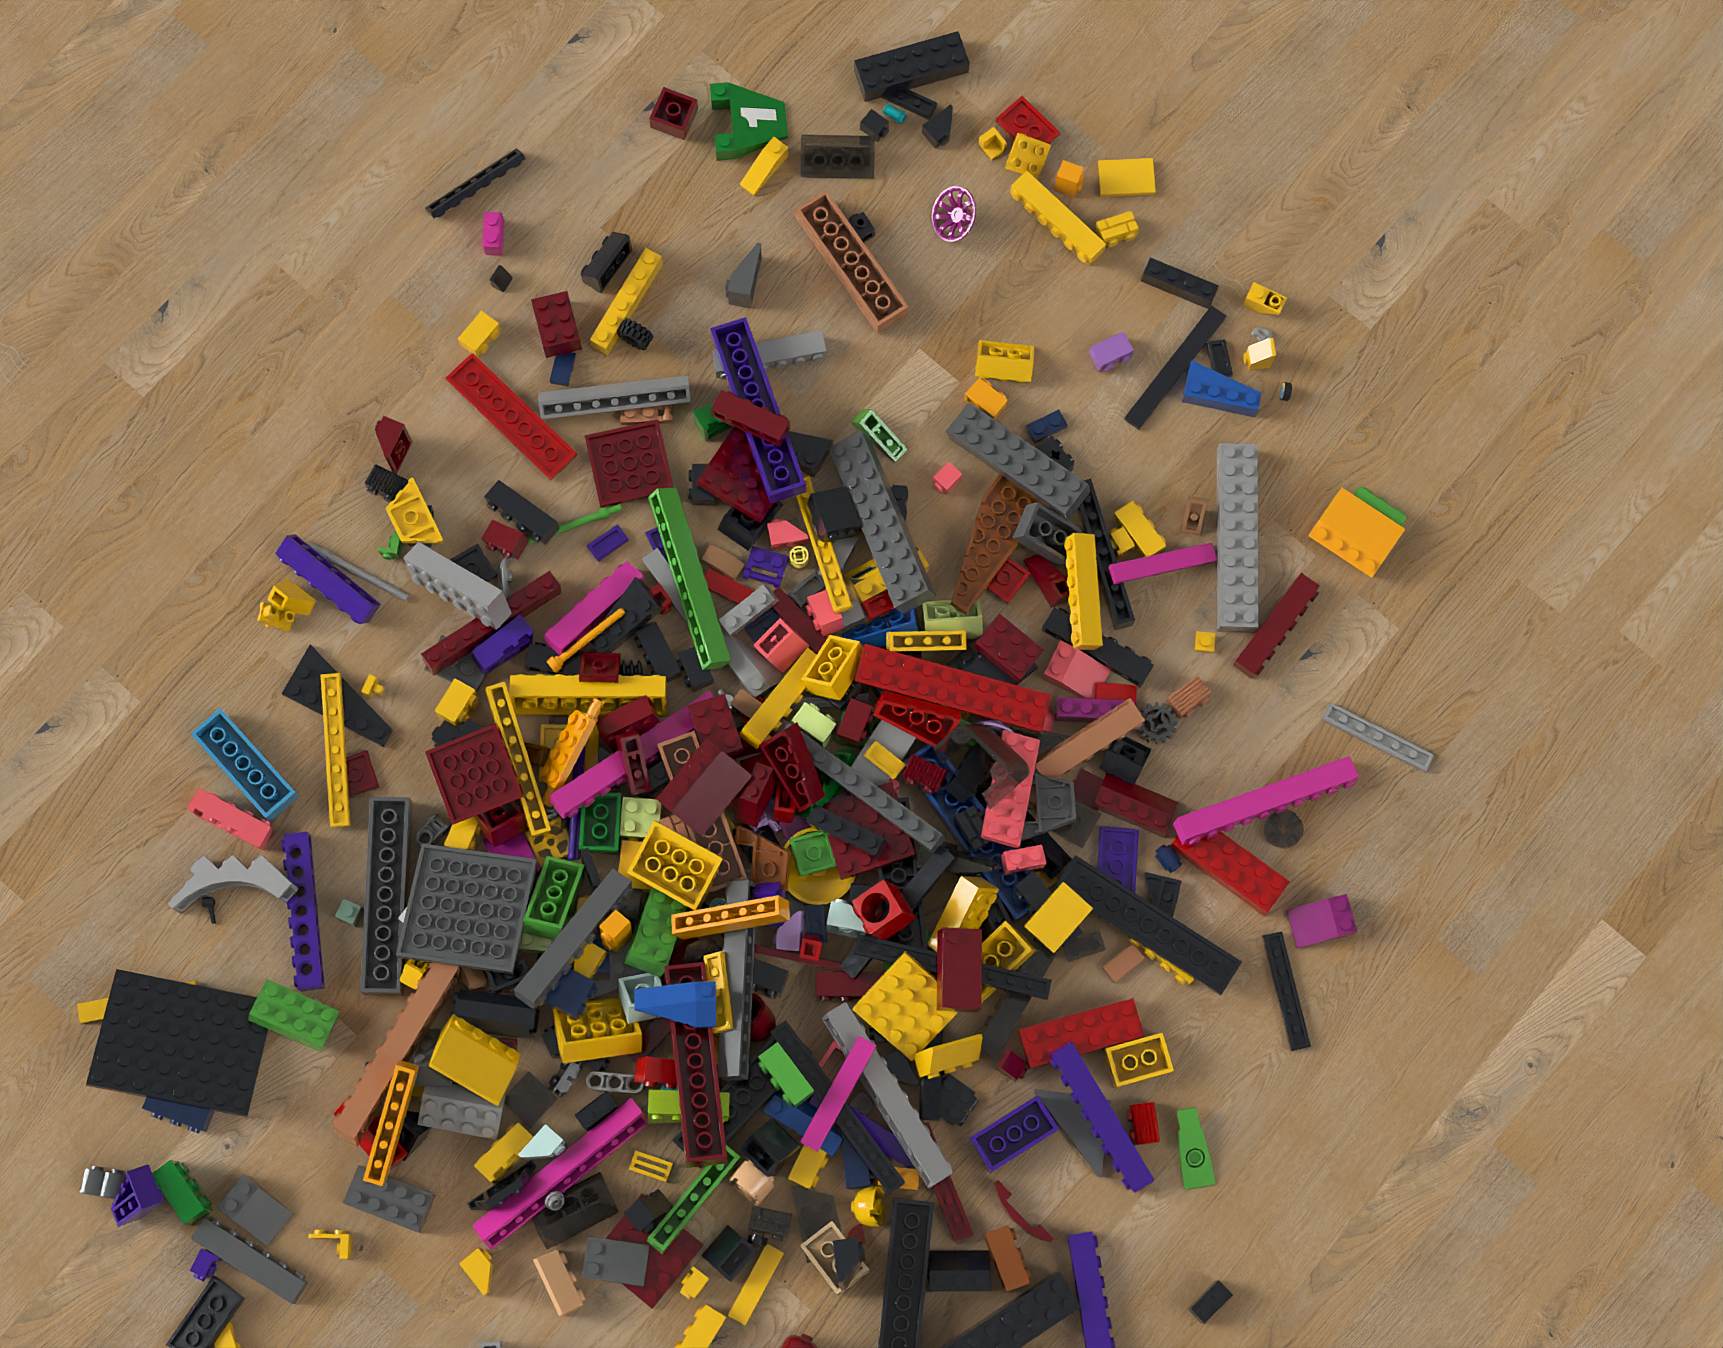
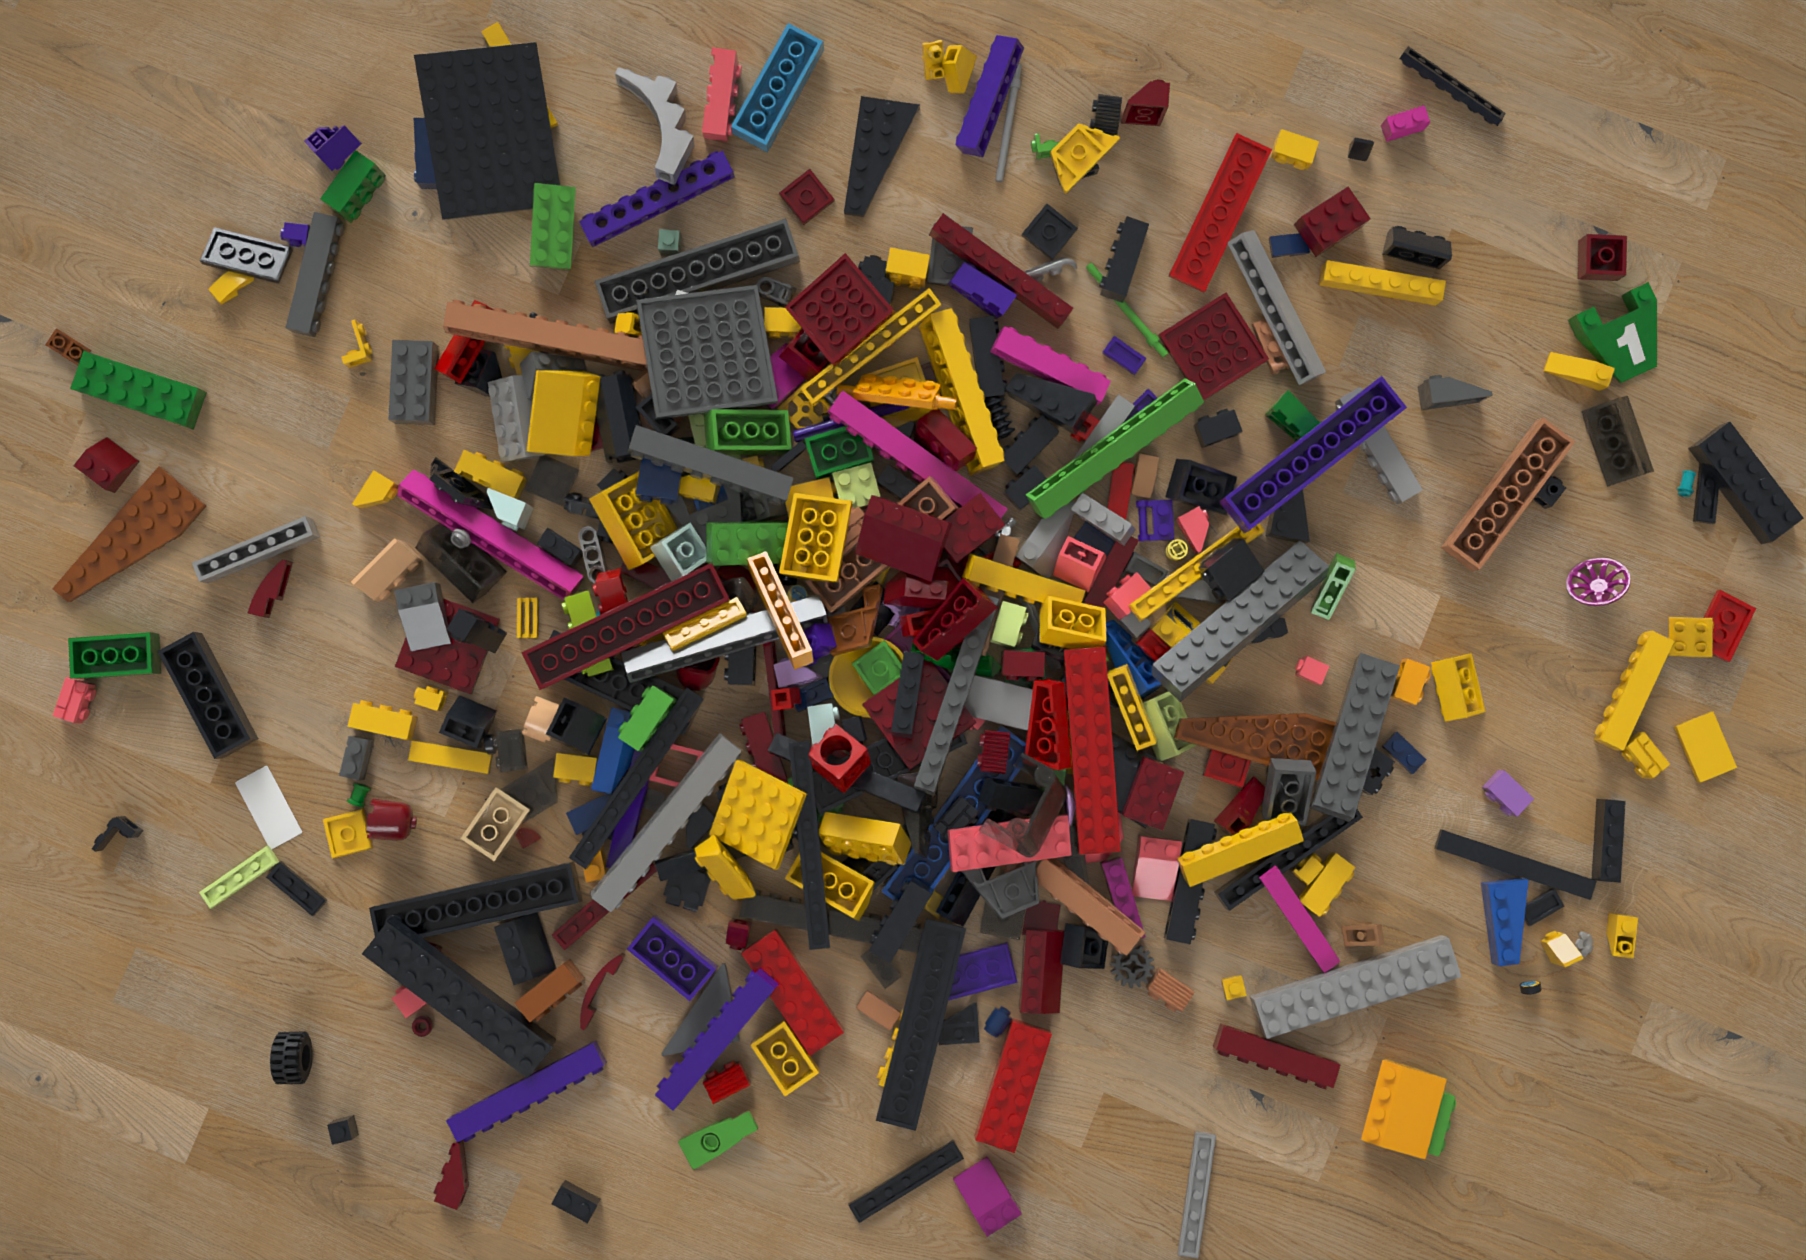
camera: 70 degrees right, 10 degrees up
(102, 1183) = (340, 110): dark grey brick -> none
(209, 902) = (636, 107): black hand -> none
(255, 1210) = (362, 261): dark grey slope -> none
(335, 750) = (823, 168): yellow tile -> none
(371, 686) = (897, 179): yellow tile -> none
(391, 1123) = (474, 355): light orange brick -> none
(457, 586) = (1023, 222): light grey brick -> none
(505, 540) = (1090, 253): dark red brick -> none
(537, 754) = (886, 361): reddish brown tile -> none
(557, 661) = (981, 348): light orange piece -> none
(600, 667) = (990, 393): dark red tile -> none
(615, 931) = (732, 502): light orange brick -> none
(633, 761) = (905, 459): dark red slope -> none
(635, 334) = (1349, 303): black tyre -> none
(685, 1003) = (677, 591): blue wedge -> none
(691, 1202) = (499, 668): bright green brick -> none
(735, 477) = (1234, 457): dark red plate -> none
(750, 418) = (1299, 450): dark red brick -> none
(838, 1093) = (648, 775): dark pink tile -> none
(848, 1260) = (486, 839): black slope -> none
(869, 1207) = (556, 841): yellow cylinder -> none
(874, 125) = (1666, 467): black brick -> none
(884, 760) = (995, 707): yellow tile -> none
(938, 128) = (1688, 534): black slope -> none
(959, 969) = (804, 854): dark red brick -> none
(992, 143) = (1691, 595): yellow panel -> none
(1023, 859) = (942, 879): coral brick -> none
(1058, 917) = (894, 934): yellow tile -> none
(1069, 179) = (1681, 688): light orange brick -> none
(1116, 691) = (1149, 914): red slope -> none
(1266, 800) = (1088, 1102): dark pink brick -> none
(1276, 837) = (1079, 1132): clear smoke plate -> none

